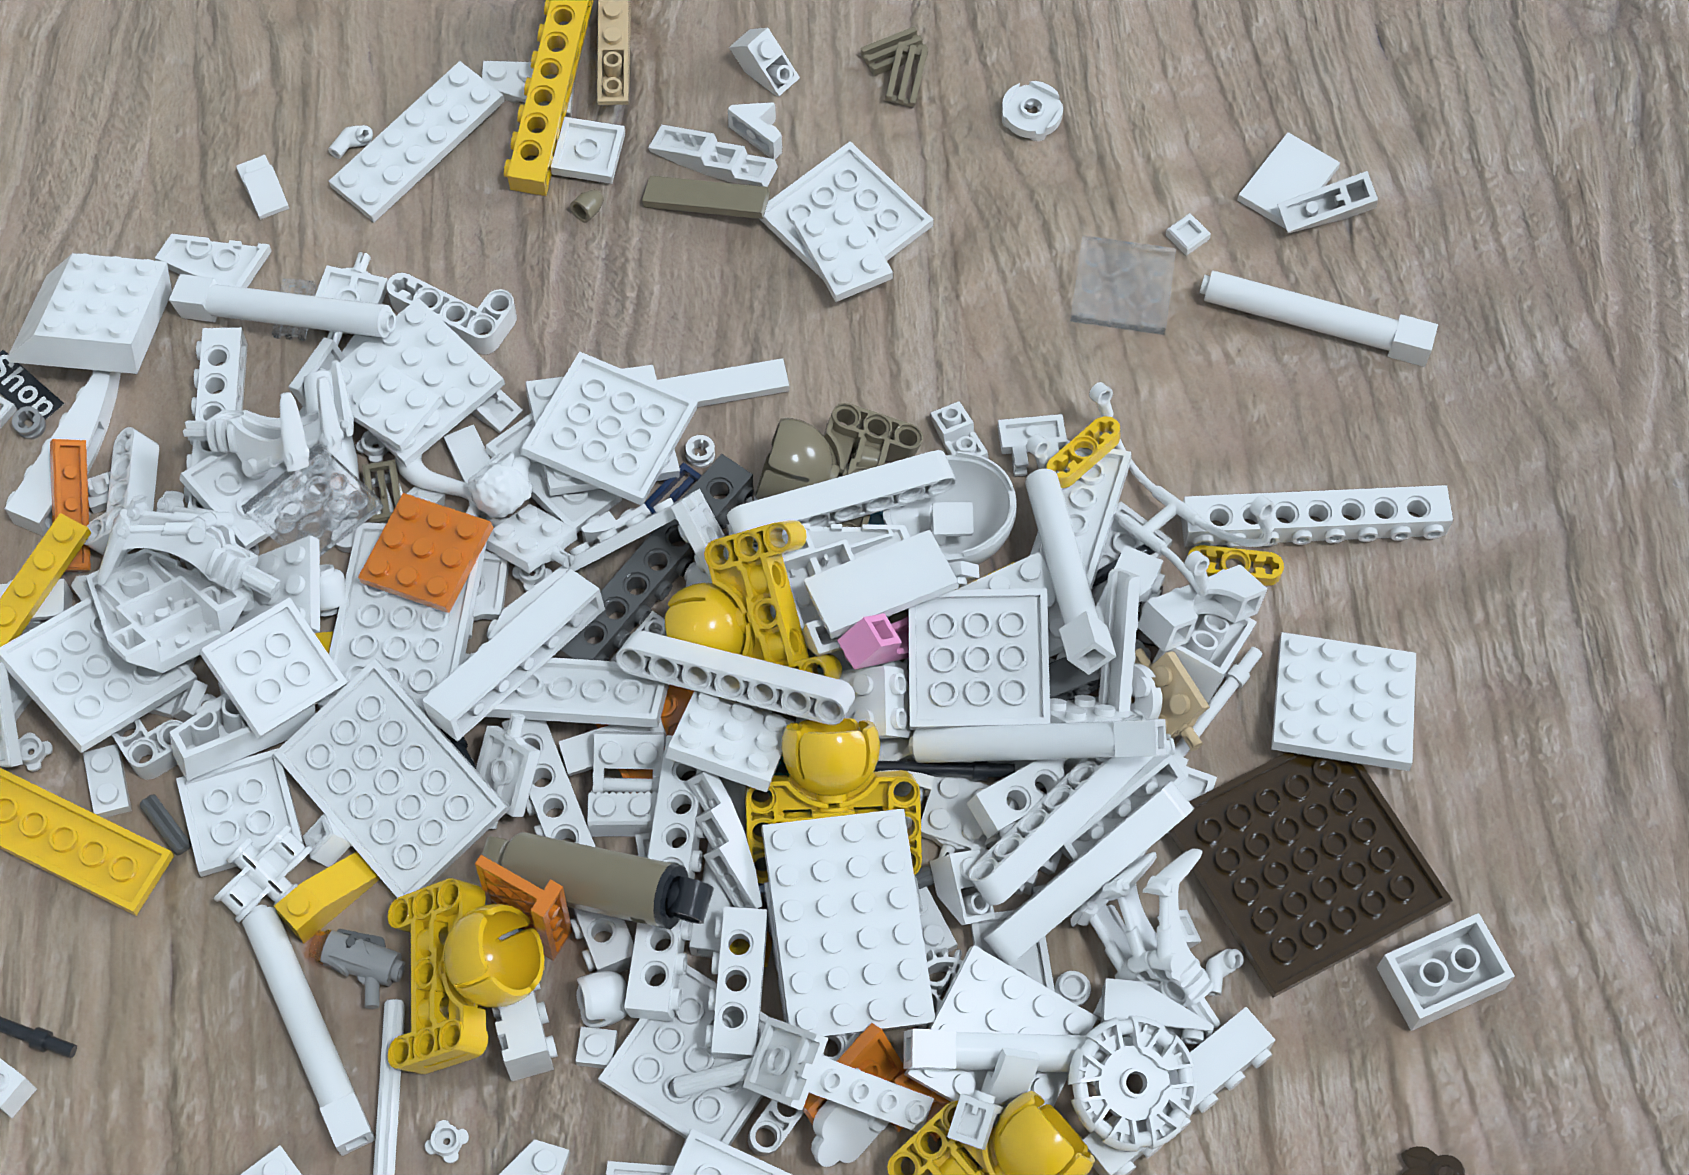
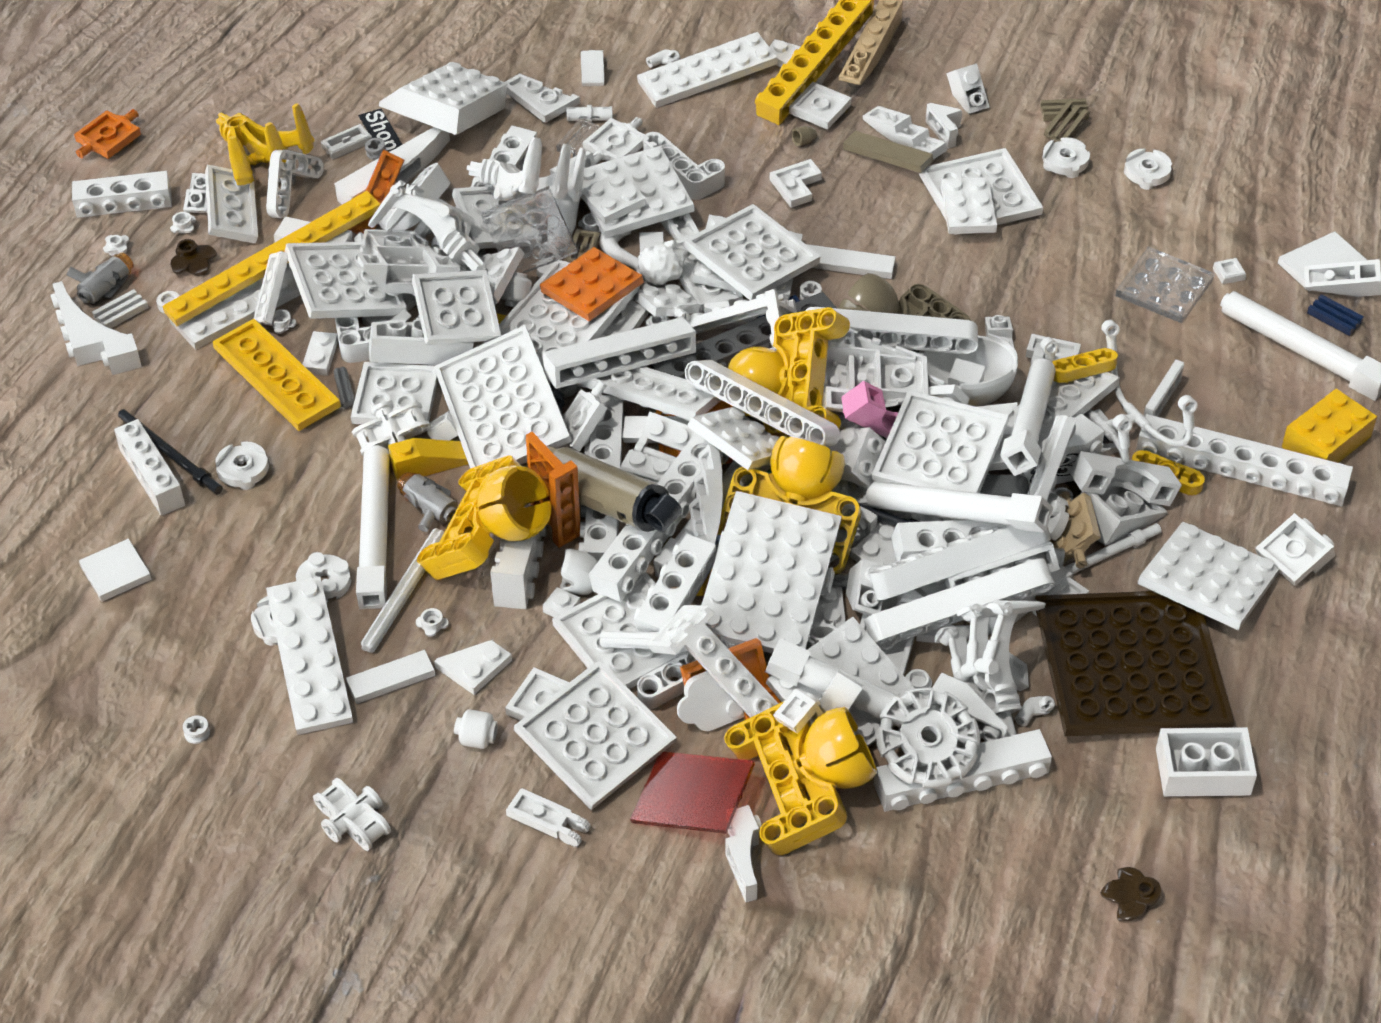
camera: 25 degrees right, 15 degrees down
(100, 1015) = (243, 476): none -> white plate
(206, 300) = (522, 113): white brick -> none
(260, 1116) = (330, 566): none -> white plate
(292, 265) = (589, 113): none -> white pin
(602, 284) = (793, 179): none -> white plate
(881, 583) = (894, 376): white tile -> none
(926, 141) = (1055, 159): none -> white plate
(1187, 450) = (1165, 389): none -> white tile
(1335, 253) = (1335, 315): none -> dark blue tile
(1396, 437) = (1330, 428): none -> yellow brick
(1426, 625) = (1297, 549): none -> white plate

